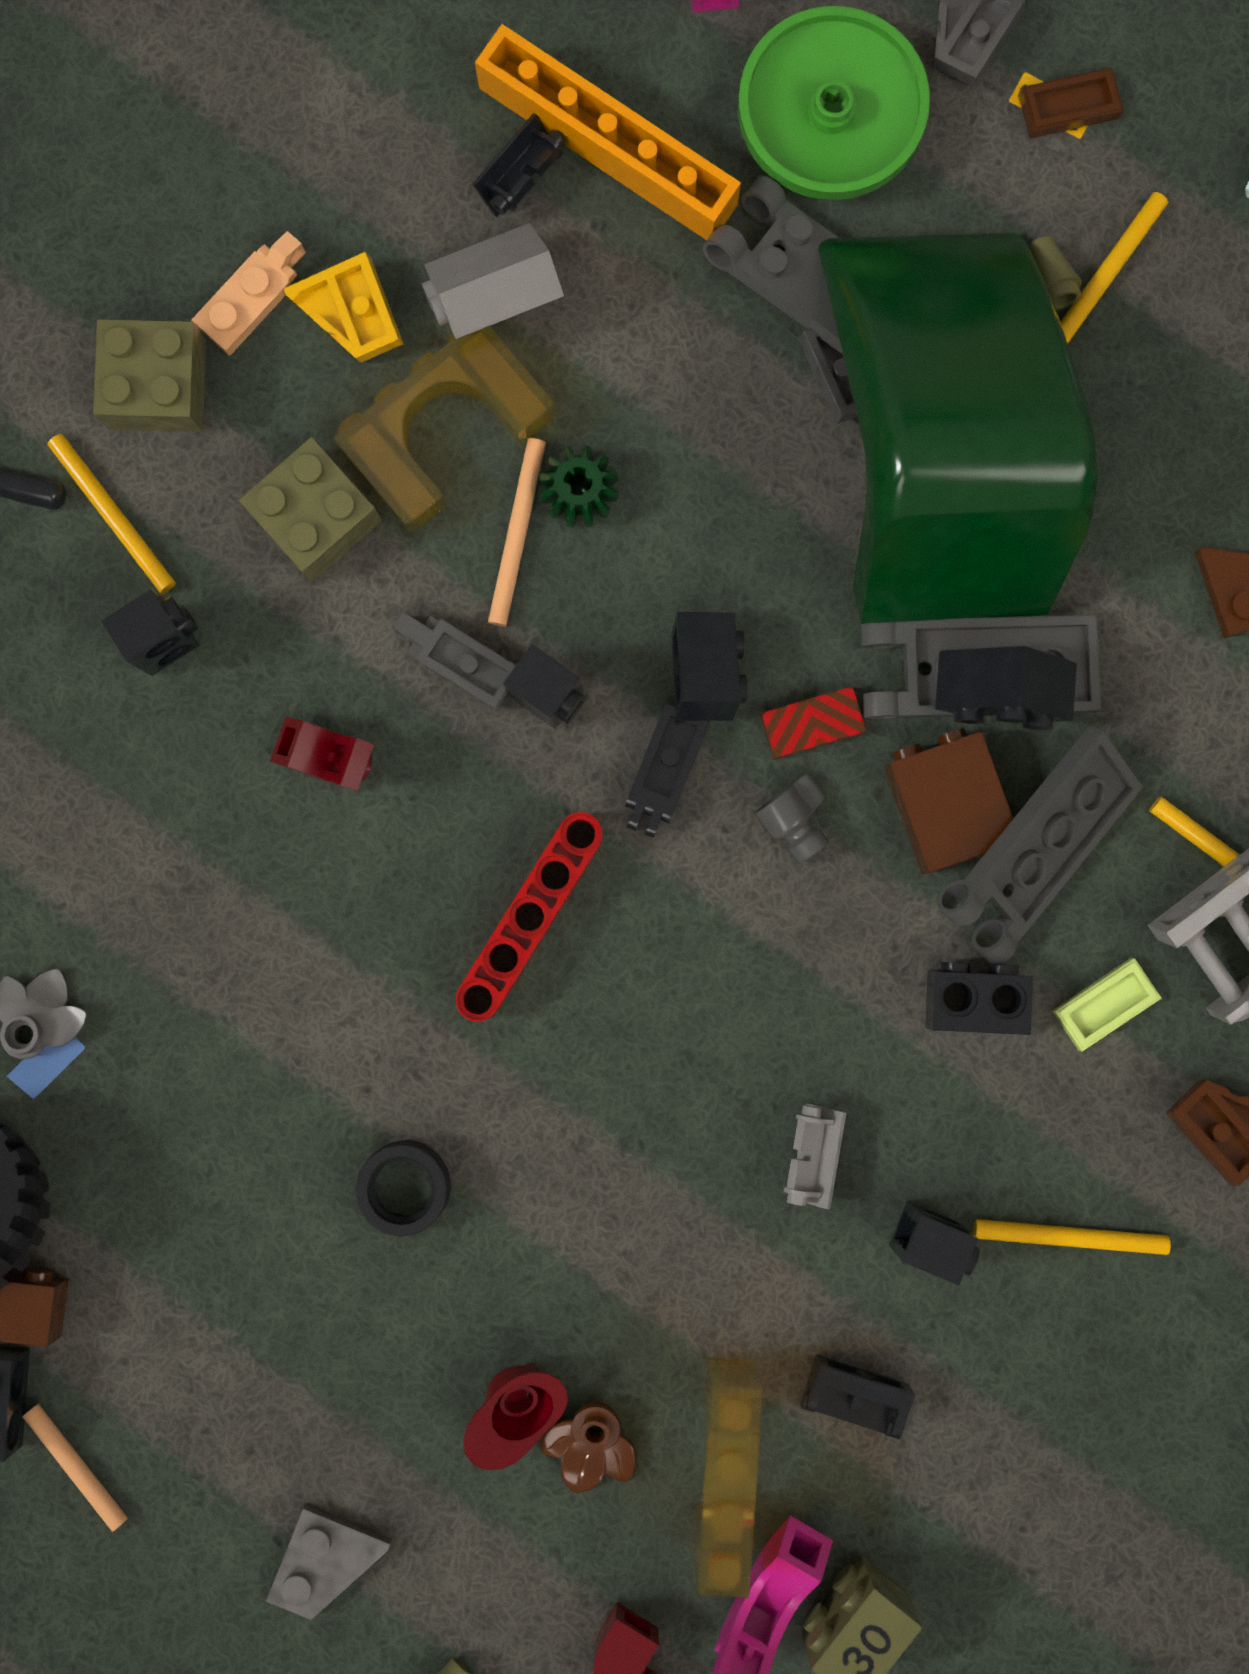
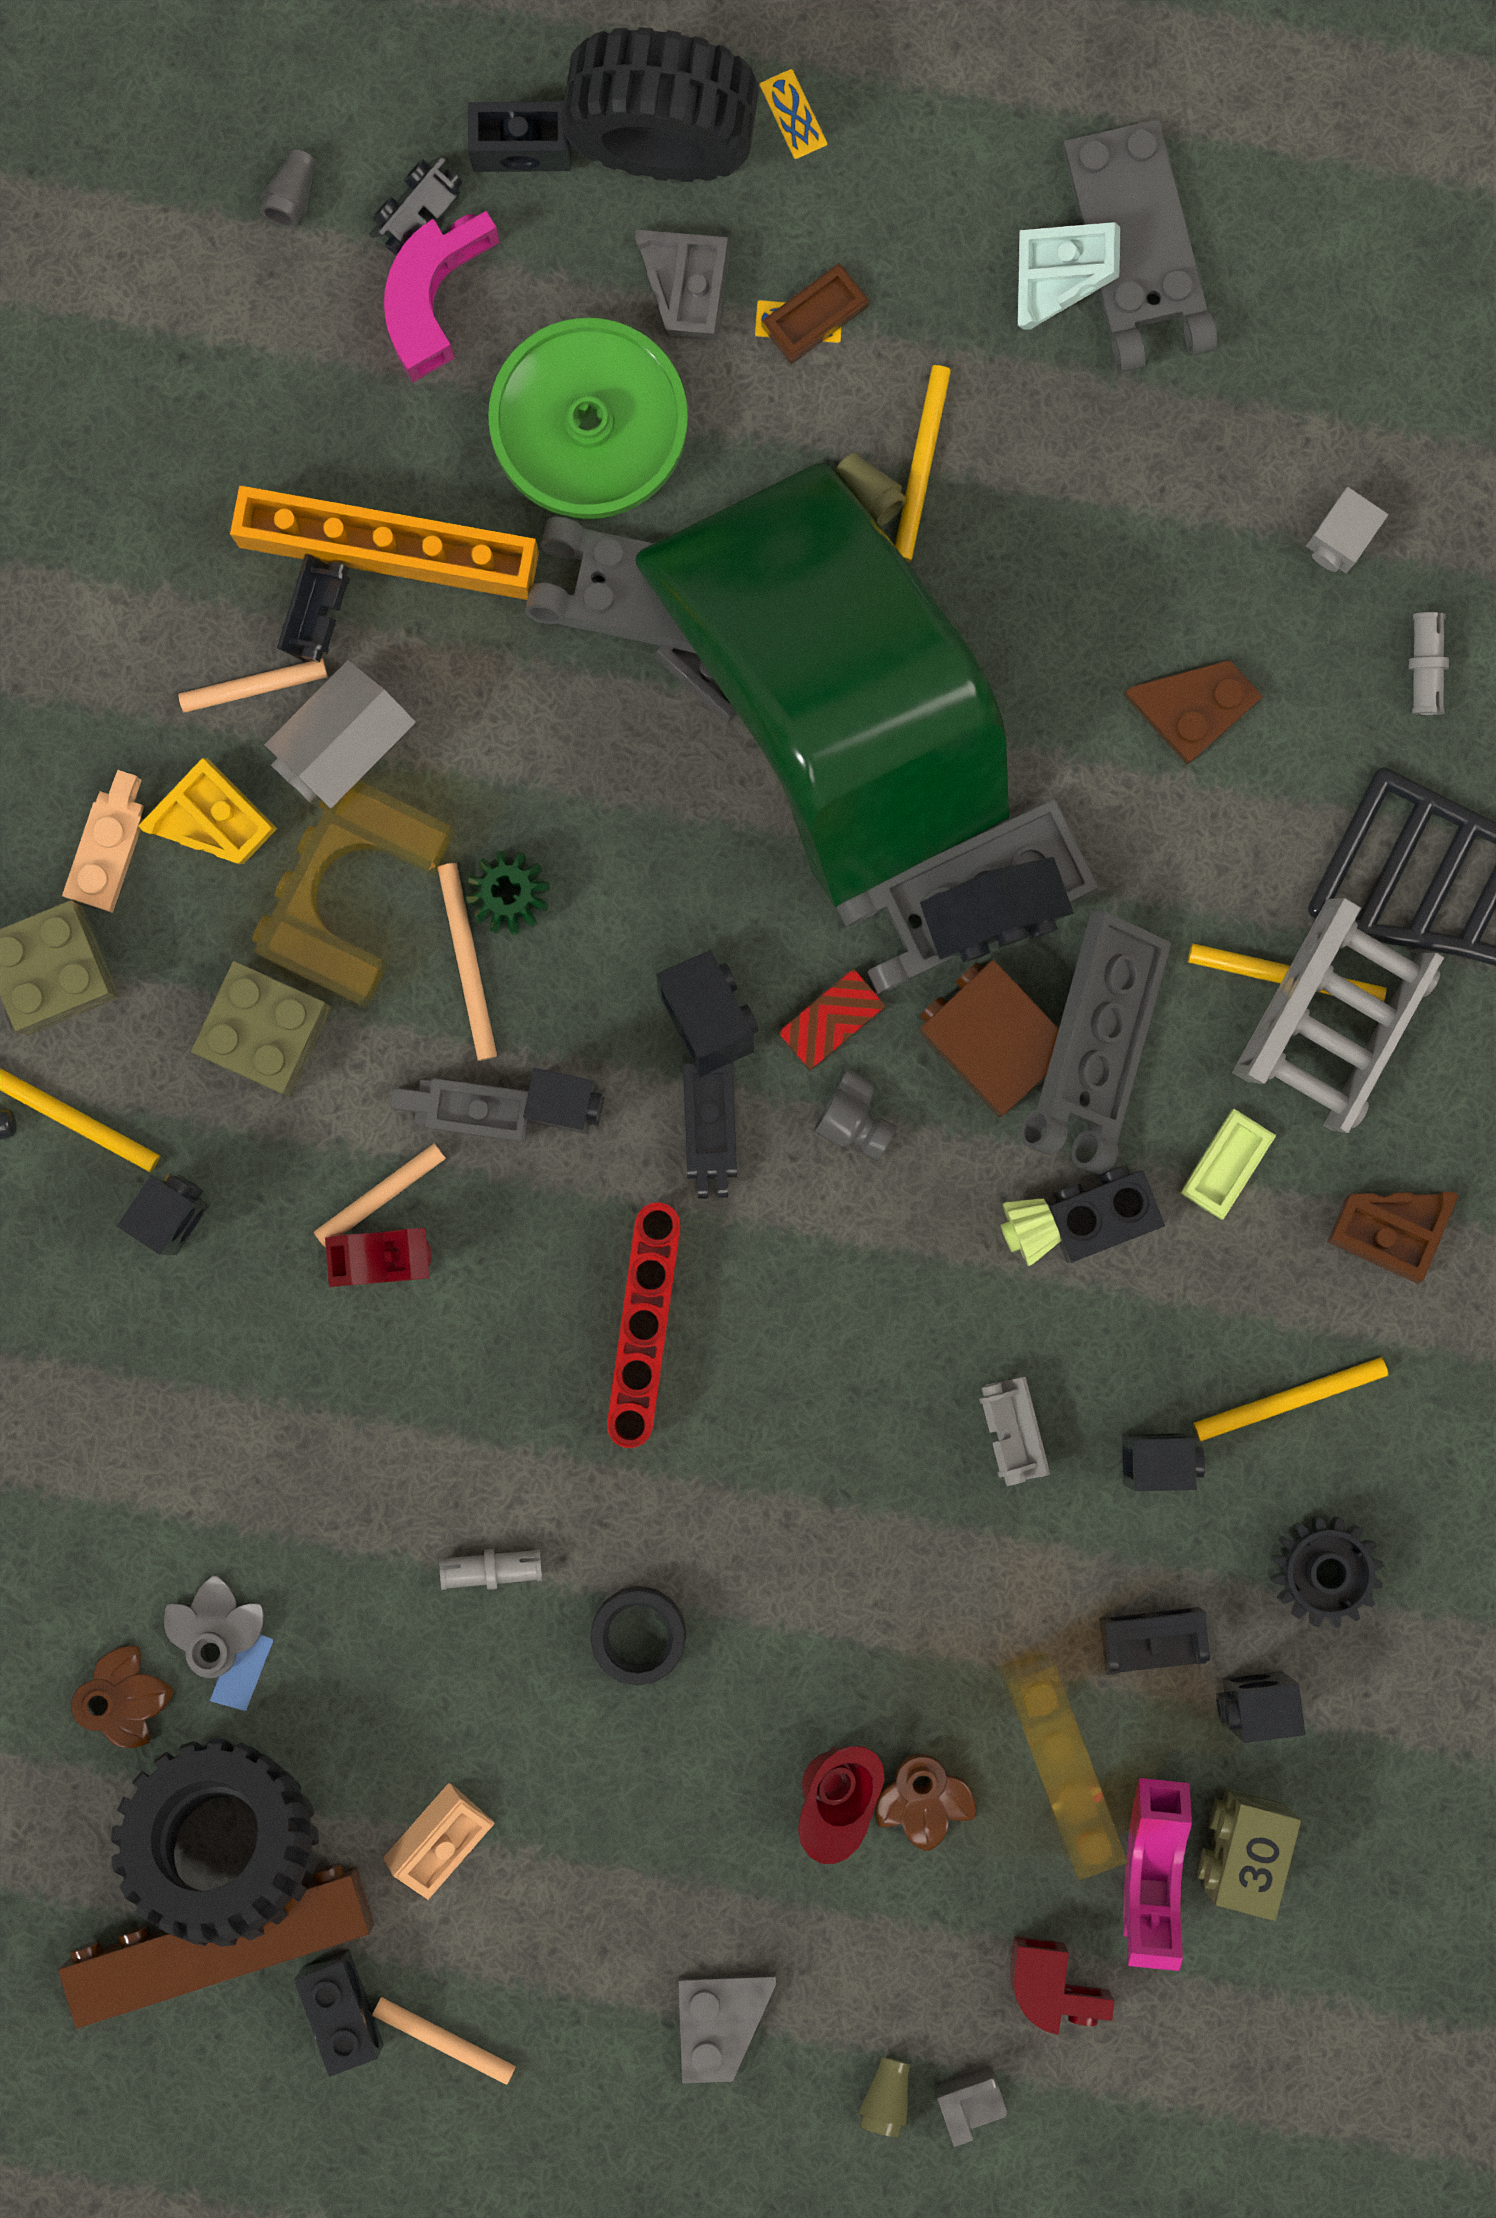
camera: 30 degrees left, 0 degrees up
(147, 1289) = (437, 1841): none -> light nougat slope
(300, 1071) = (490, 1569): none -> light grey pin
(352, 700) = (381, 1193): none -> light nougat bar
(437, 212) = (252, 685): none -> light nougat bar
(908, 983) = (1030, 1228): none -> yellowish green piece
(929, 1503) = (1261, 1707): none -> black brick
(1055, 1426) = (1353, 1578): none -> black gear

